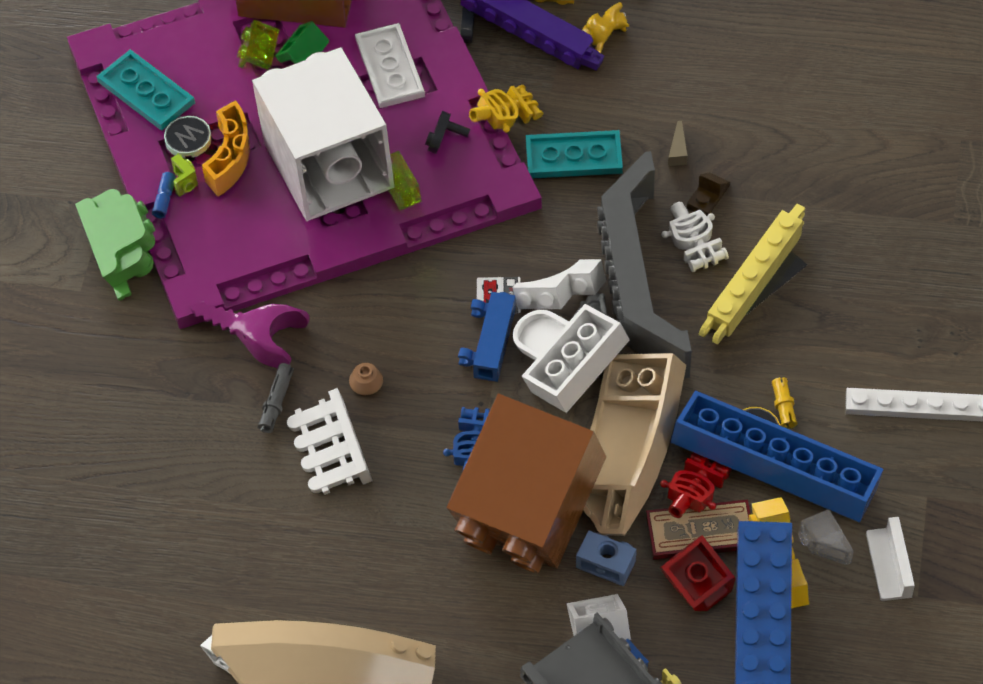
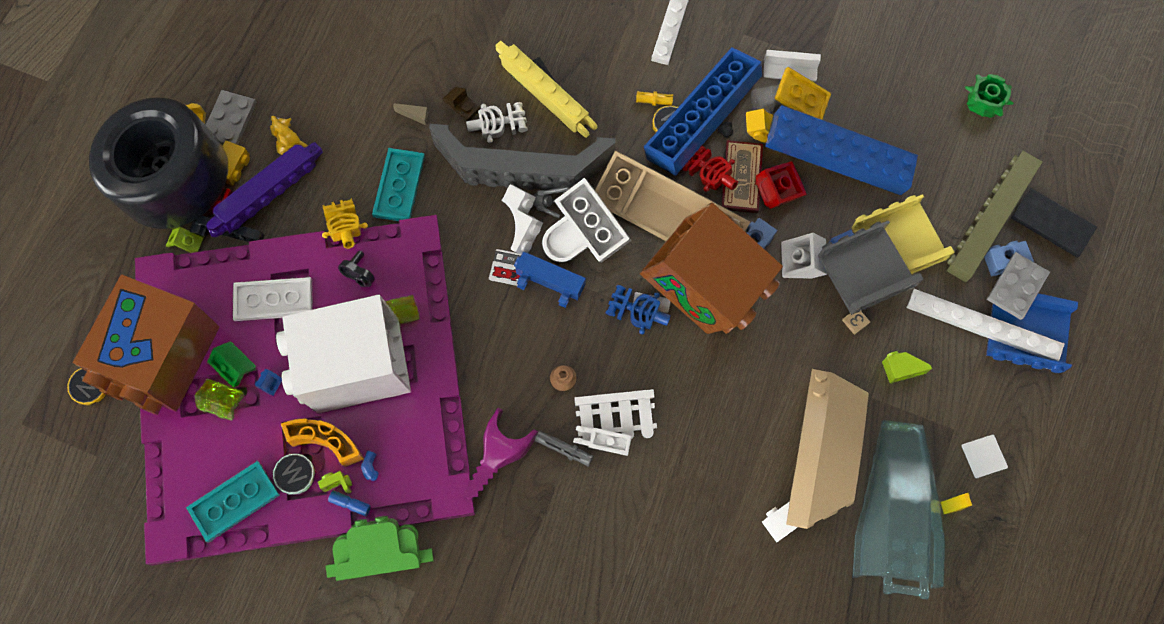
camera: 80 degrees left, 15 degrees up
(210, 201) = (367, 467): none -> blue arm
(292, 435) = (605, 440): none -> white hinge
(765, 493) = (725, 129): none -> black piece
(842, 576) = (802, 94): none -> yellow tile

